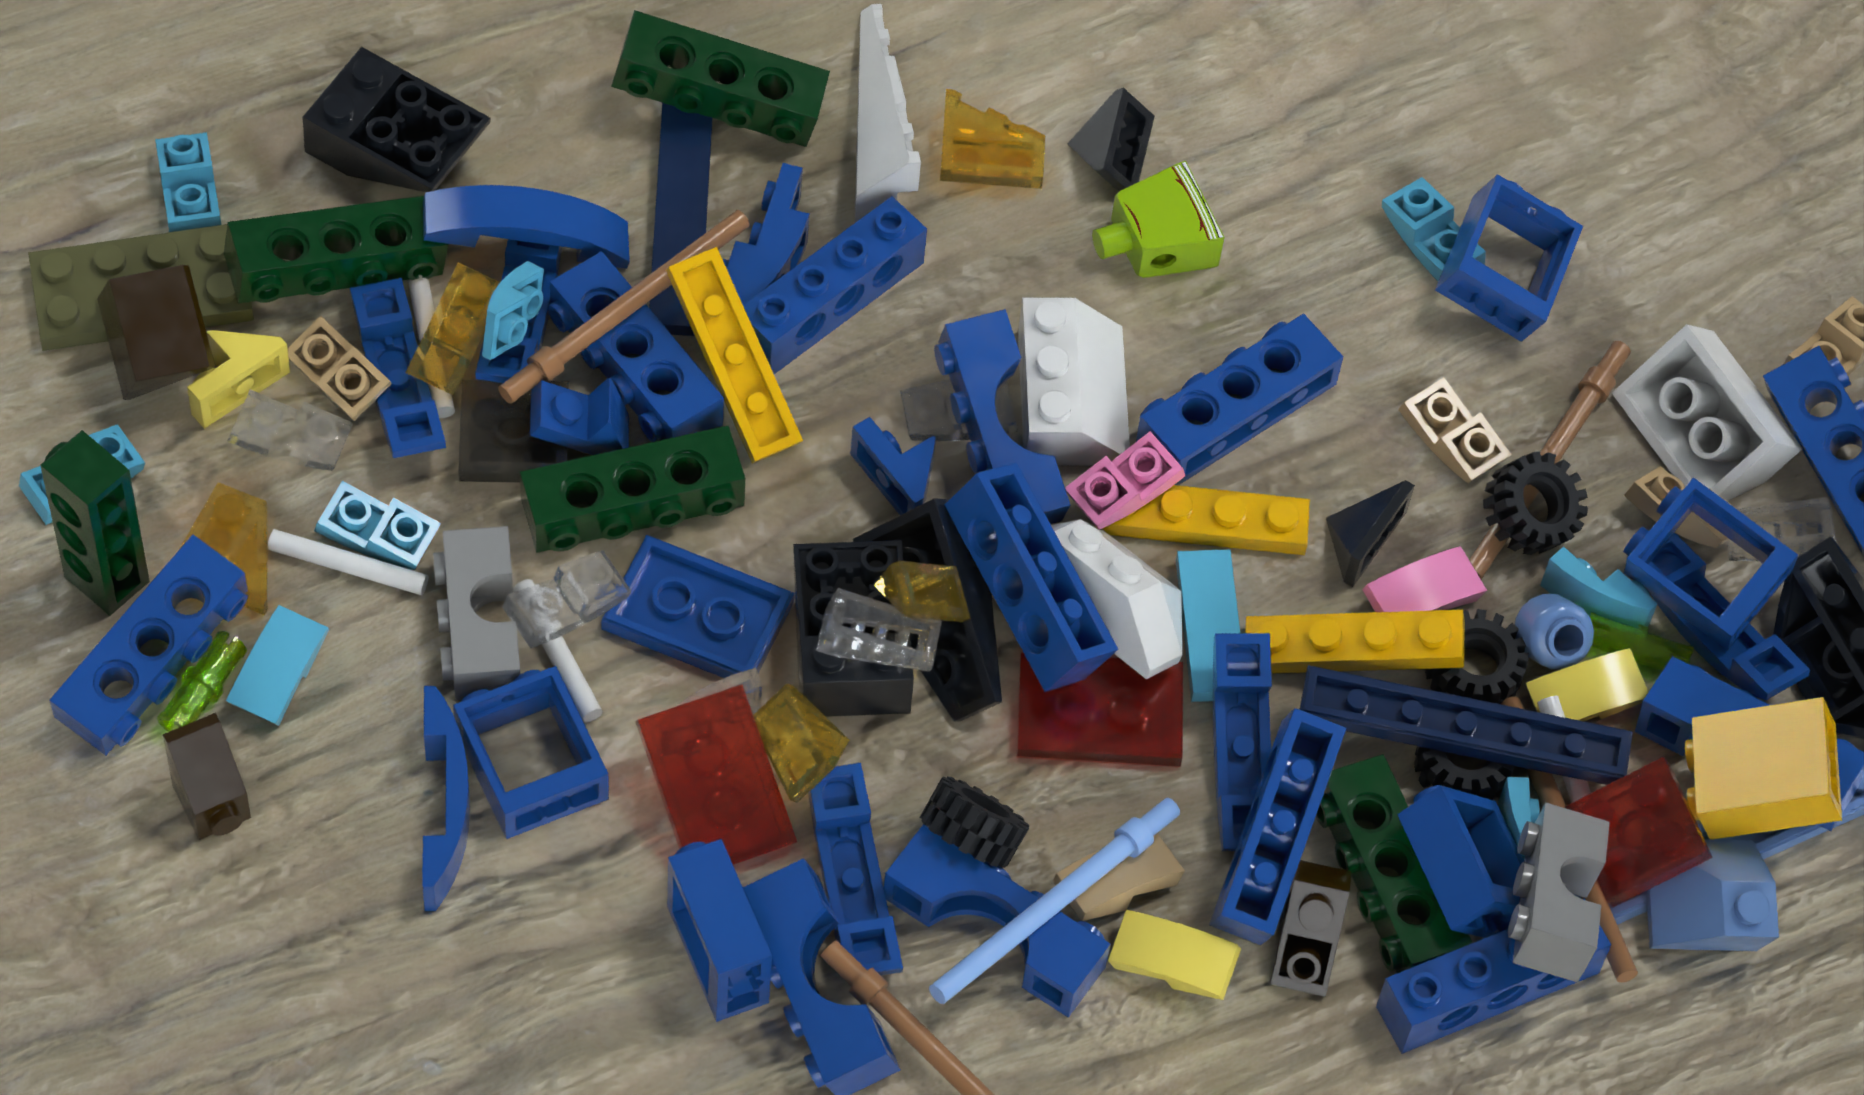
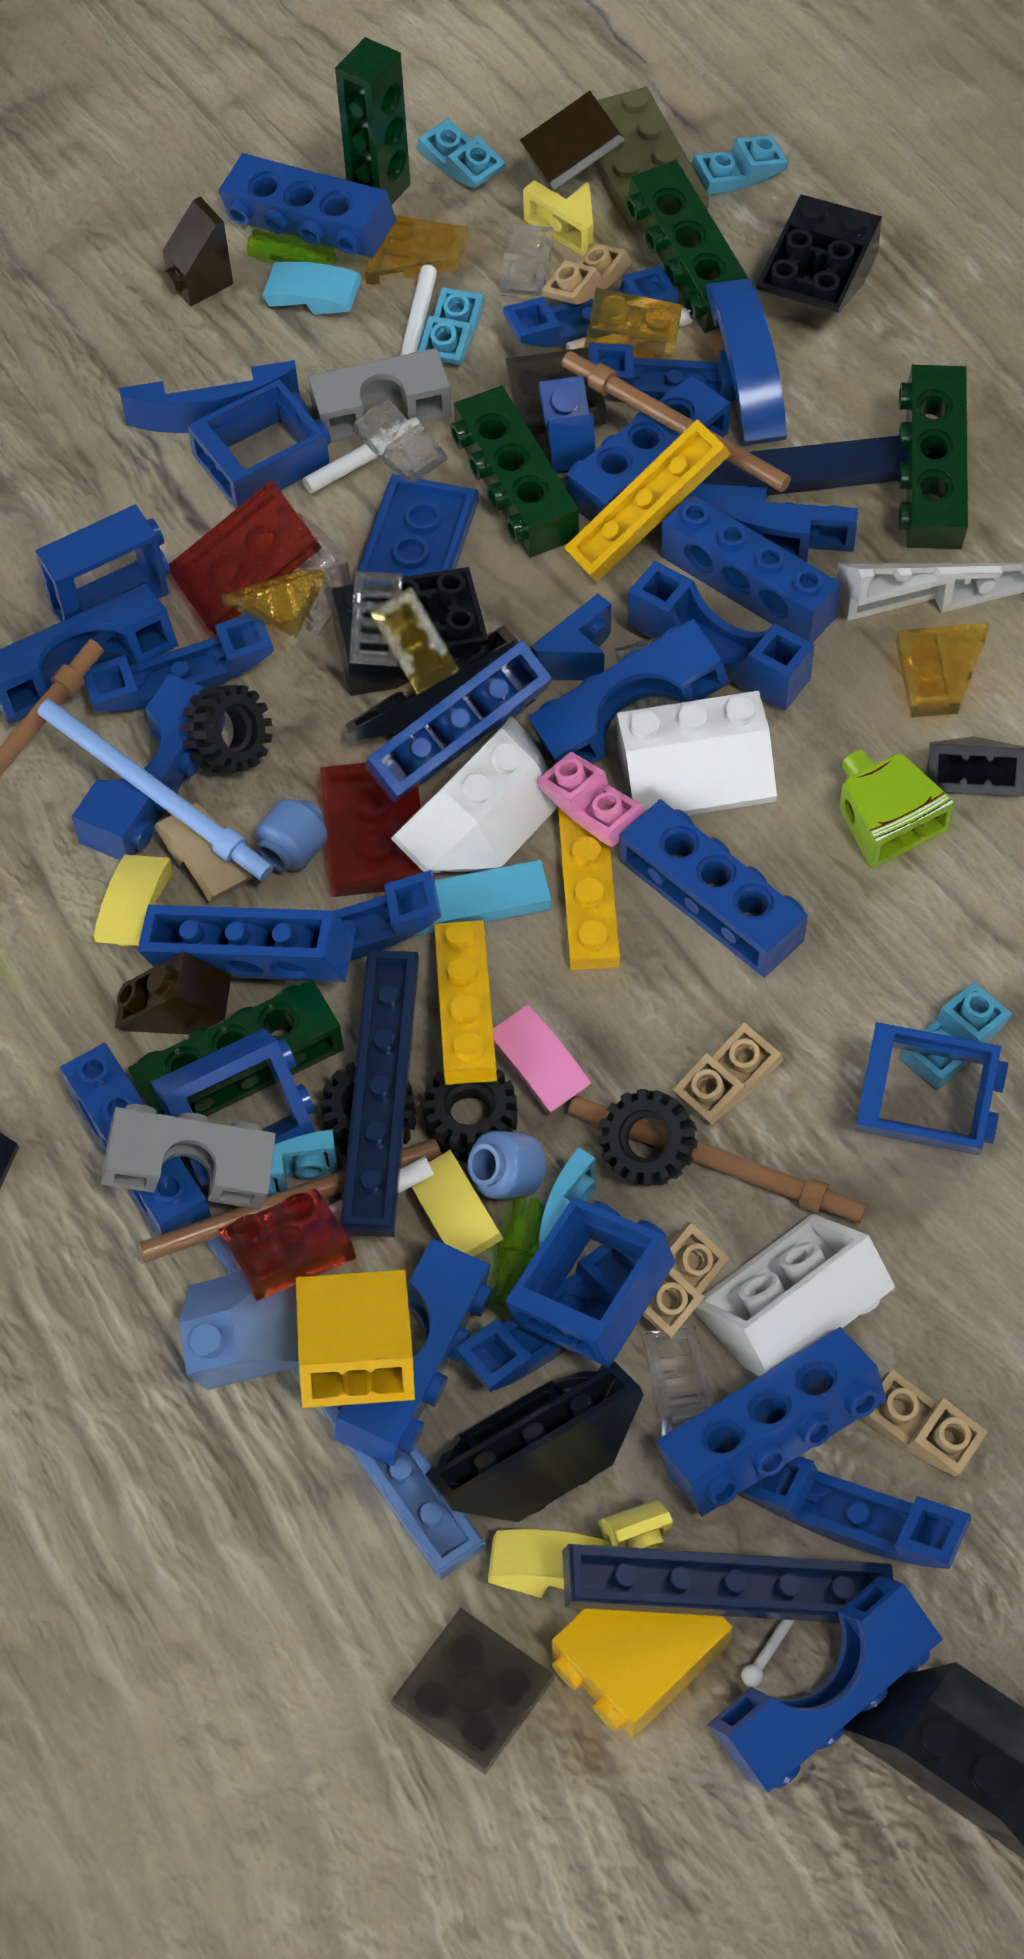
camera: 90 degrees right, 0 degrees up
(510, 307) = (637, 337): medium azure slope -> none
(883, 362) = (764, 661): none -> blue arch
(1117, 781) = (291, 834): none -> medium blue head
(1365, 527) = (595, 1008): black slope -> none

